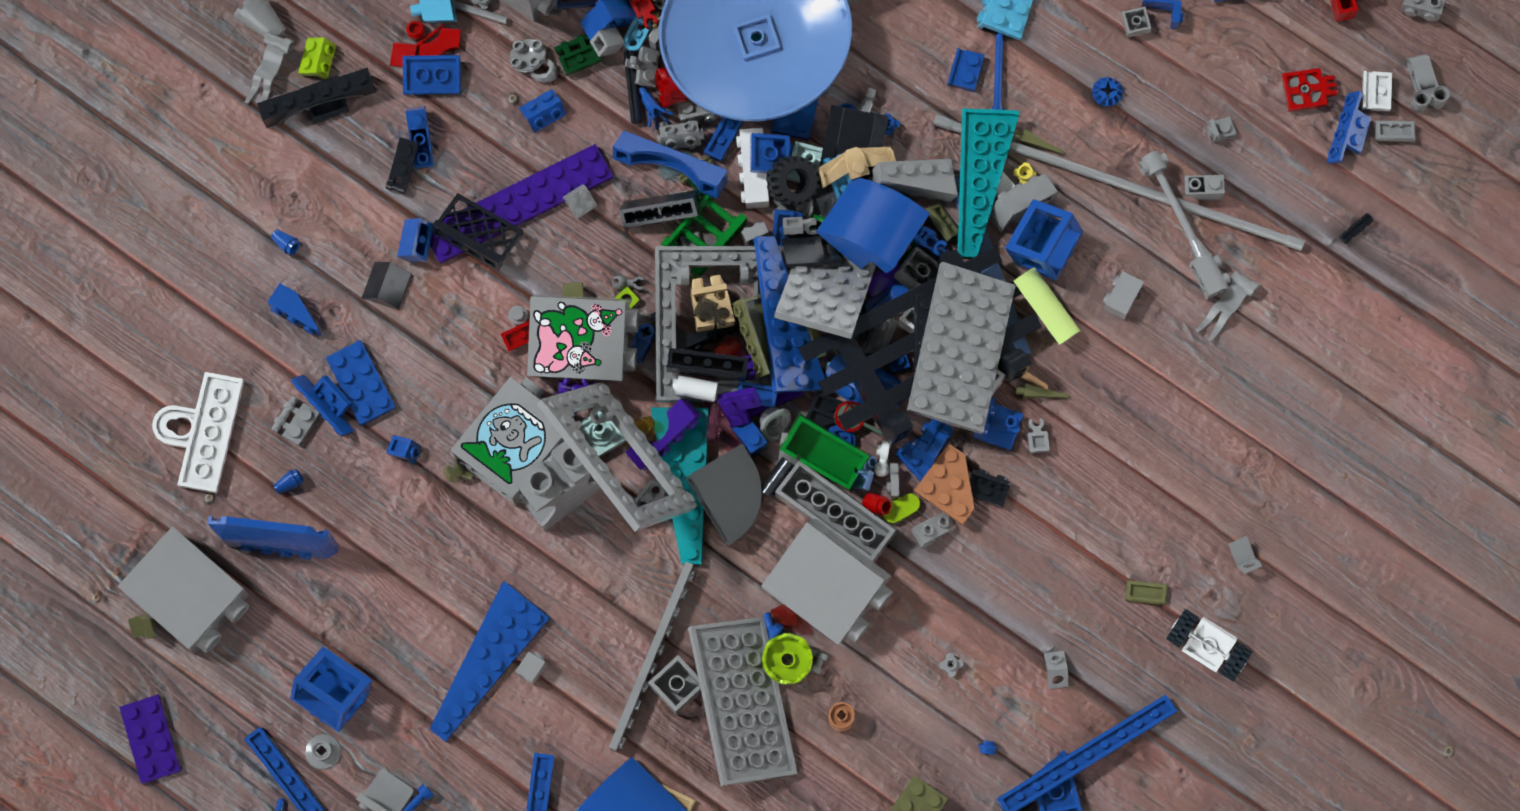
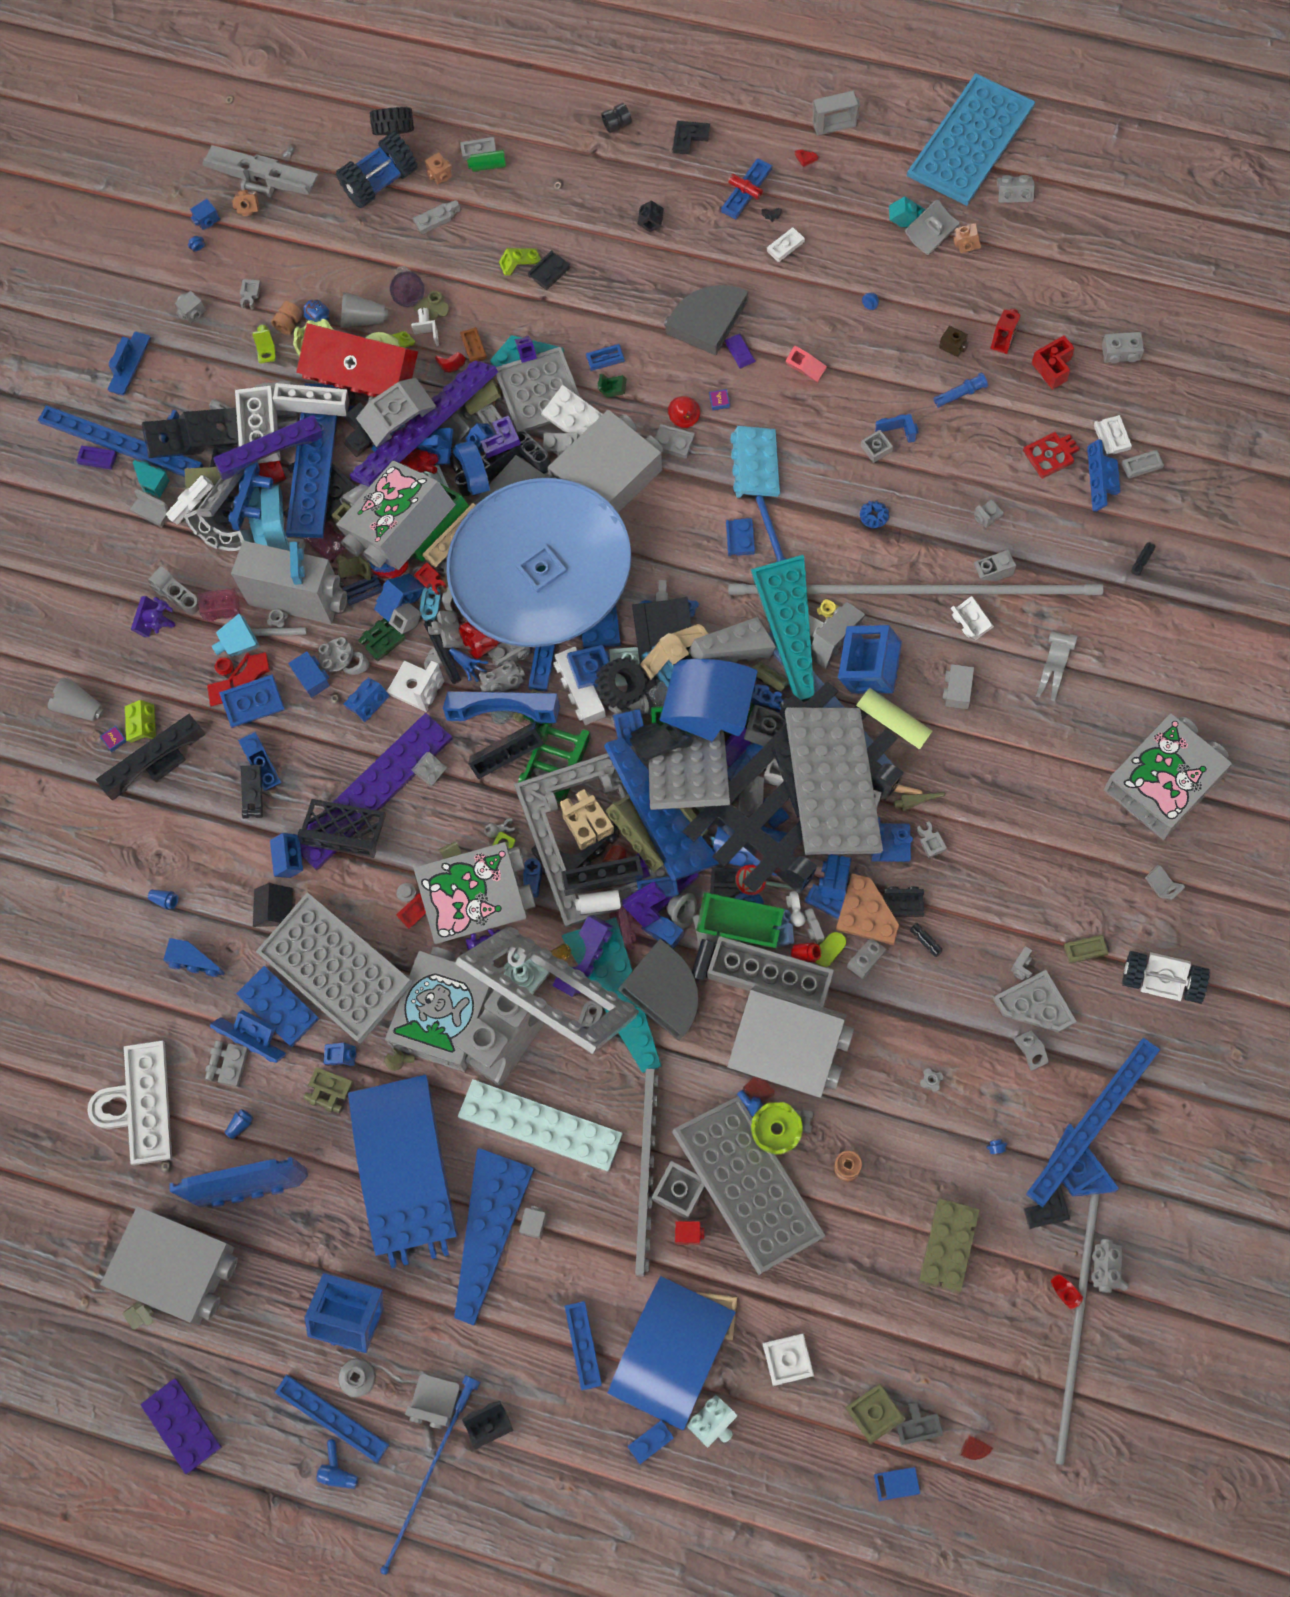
camera: 15 degrees left, 5 degrees down
(270, 64) = (96, 740): light grey flag -> none
(288, 67) = (113, 738): none -> magenta tile
(387, 474) = (330, 1084): none -> olive plate
(425, 364) = (334, 967): none -> light grey plate
(427, 574) = (401, 1168): none -> blue hinge
(495, 66) = (309, 675): none -> blue brick
(569, 580) = (540, 1125): none -> light aqua plate
(600, 124) = (427, 684): none -> white bracket
(619, 93) = (432, 656): none -> light grey tile
(671, 726) = (688, 1233): none -> red brick
(707, 310) = (584, 825): clear smoke plate -> none
(750, 233) = (597, 745): light grey piece -> none
(796, 225) = (639, 722): light grey plate -> none
(996, 531) = (926, 939): none -> black axle
(1029, 139) = (821, 578): olive piece -> none
(1078, 627) = (1036, 1003): none -> light grey plate
(1081, 583) = (1021, 962): none -> light grey bracket
(1162, 231) = (972, 618): none -> white bracket
(1204, 266) = (1022, 636): light grey bar -> none
(1291, 452) = (1168, 775): none -> brick
(1425, 84) = (1153, 416): light grey piece -> none

